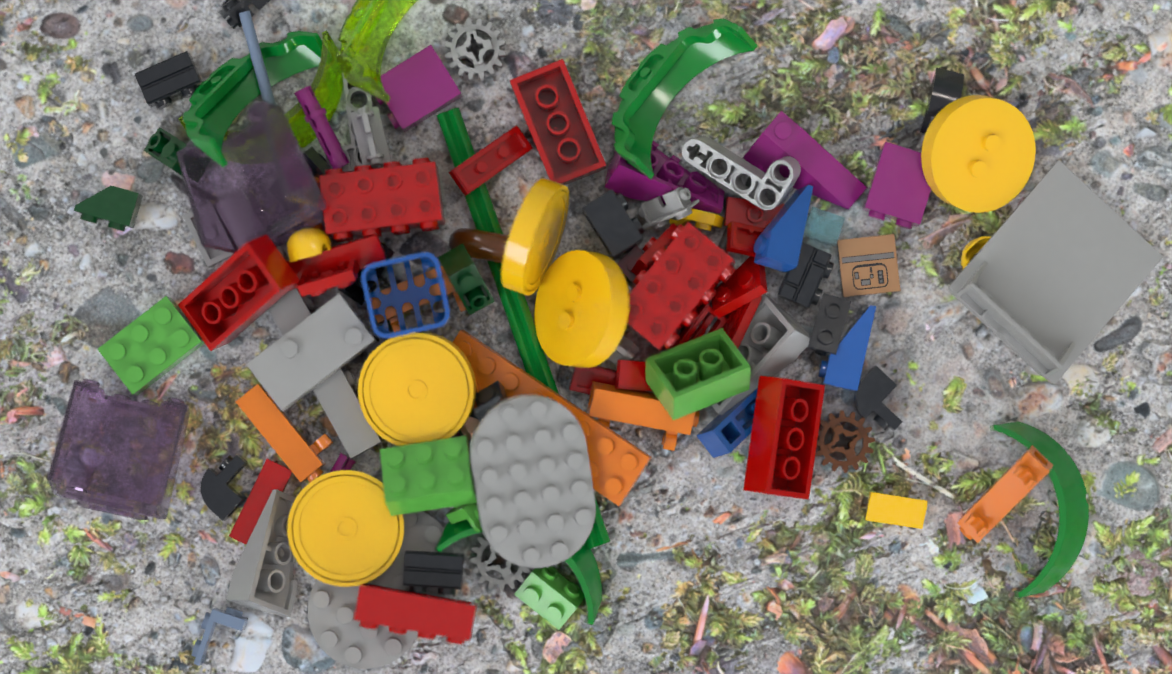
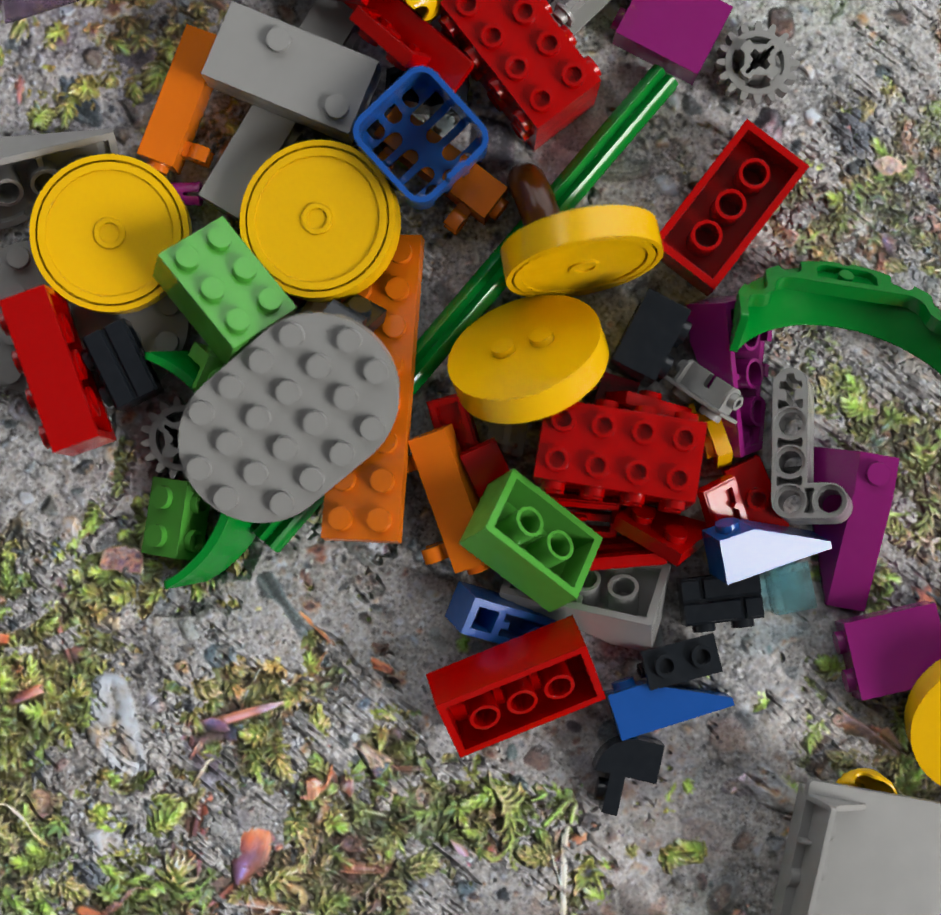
camera: 60 degrees right, 0 degrees up
(216, 490) = (75, 66): black brick -> none
(271, 477) = (127, 120): red tile -> none
(466, 279) = (483, 203): dark green slope -> none
(490, 160) = (638, 155): red tile -> none
(849, 454) = (543, 772): reddish brown gear -> none
(868, 265) = (774, 666): medium nougat tile -> none
(896, 510) = (508, 865): yellow slope -> none

